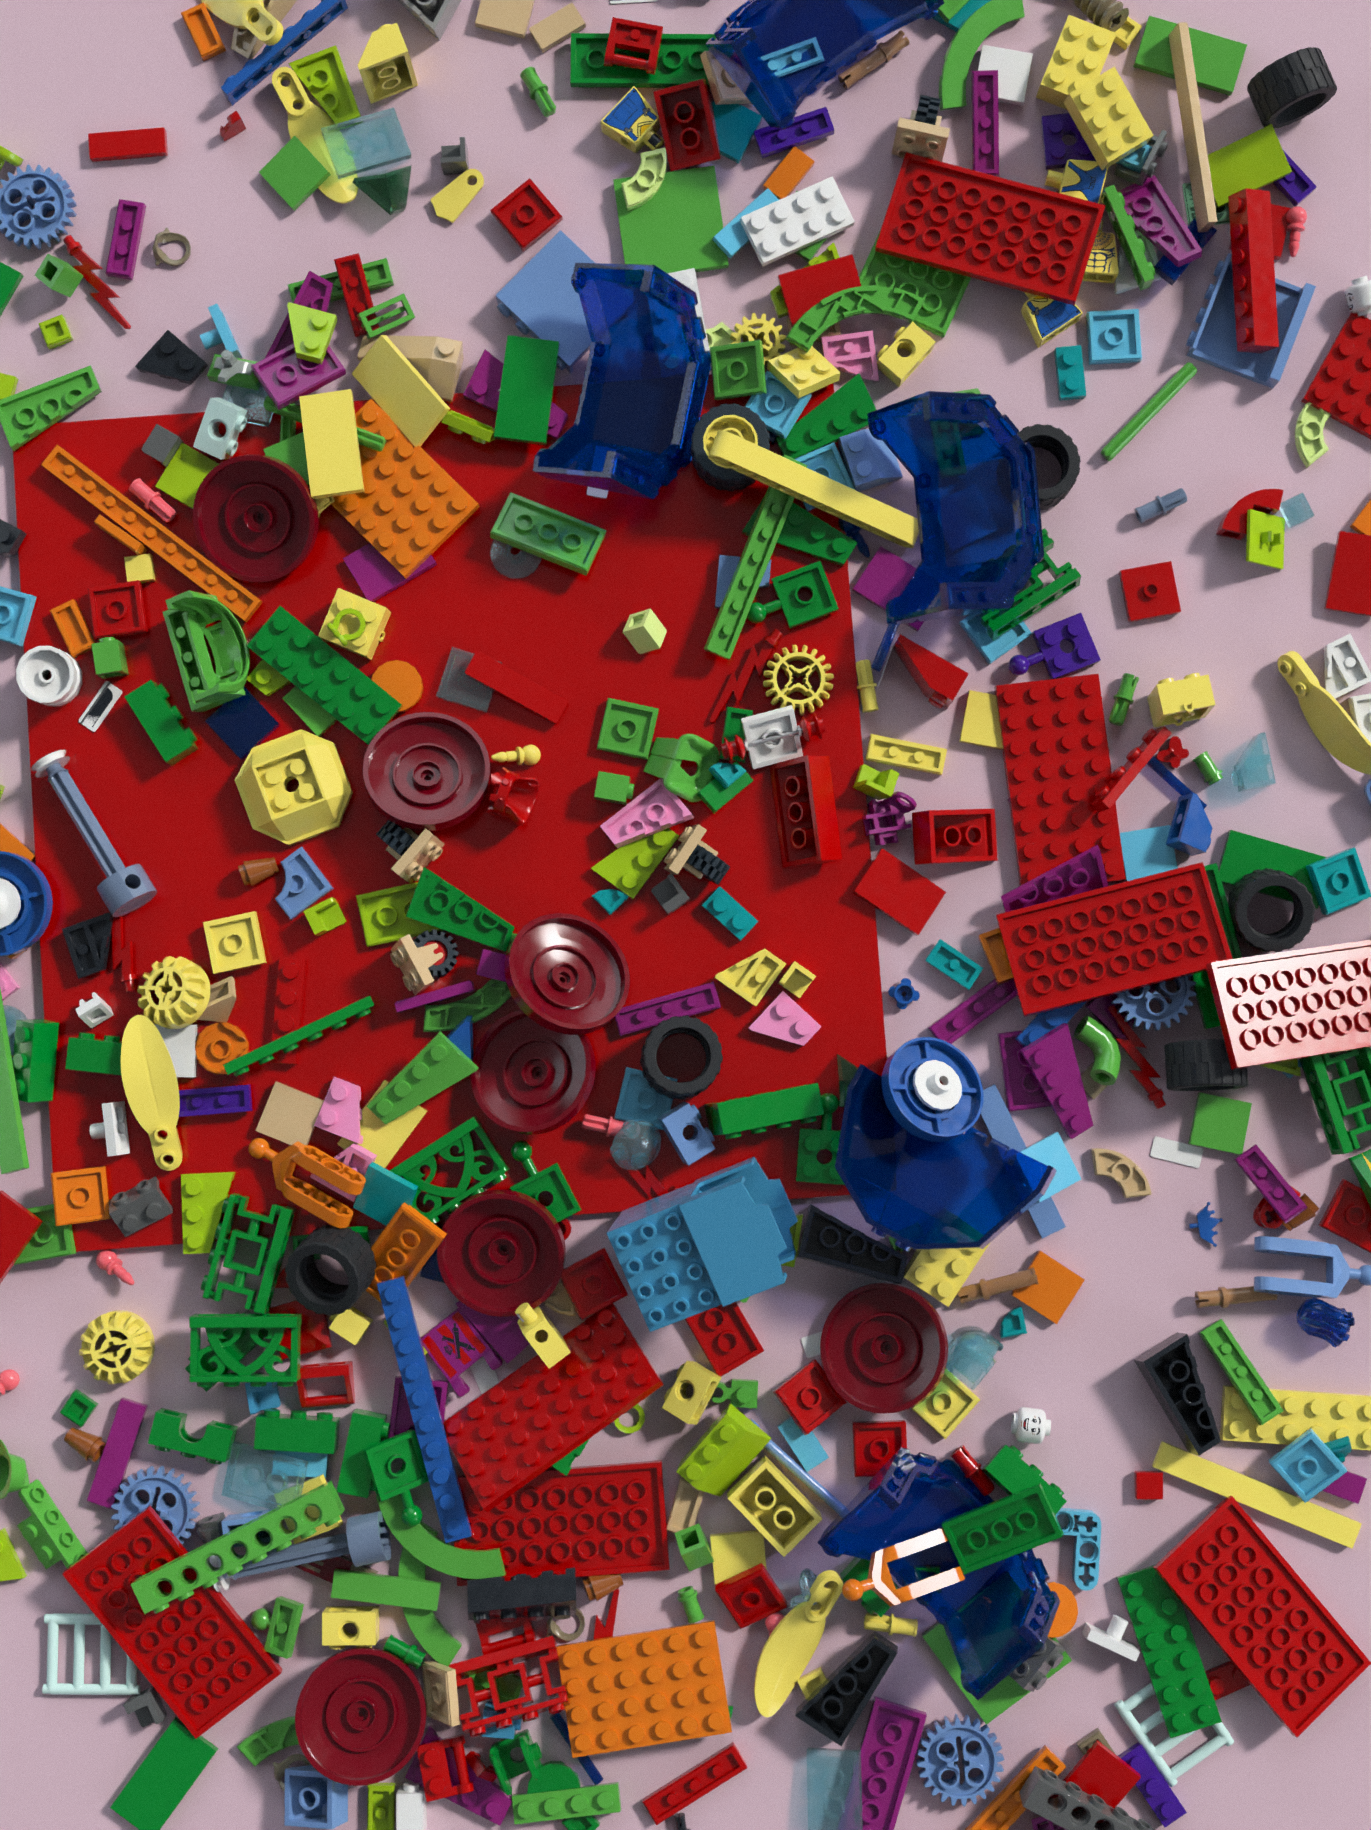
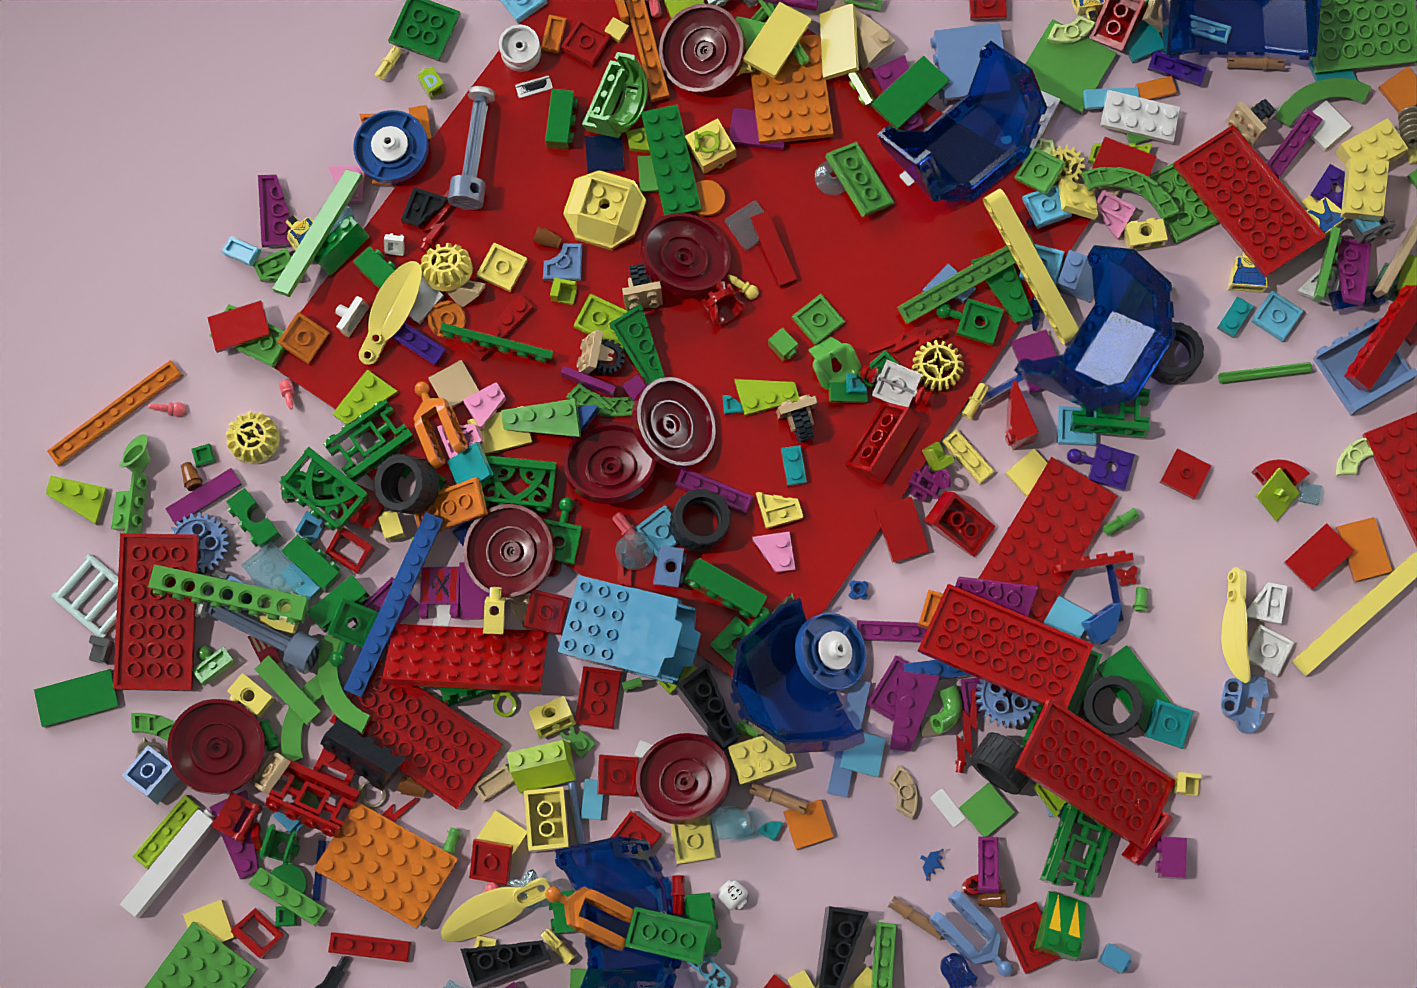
camera: 35 degrees right, 10 degrees down
(109, 658) = (560, 64): bright green brick -> none
(139, 1206) = (329, 369): dark grey bracket -> none
(644, 631) = (871, 273): yellowish green panel -> none
(646, 815) = (789, 373): bright pink wing -> none
(670, 894) = (768, 429): dark grey panel -> none
(694, 1547) = (481, 806): bright green brick -> none
(728, 418) = (1017, 196): black wheel -> none
(797, 979) = (802, 530): light yellow panel -> none
(833, 418) = (1070, 237): green wing -> none
(954, 964) = (901, 595): teal plate -> none
(1103, 259) = (1302, 266): light yellow torso -> none
(1161, 505) = (1230, 429): sand blue axle -> none
(1181, 699) = (1154, 545): light yellow brick -> none
(1254, 766) = (1168, 619): clear light blue slope -> none

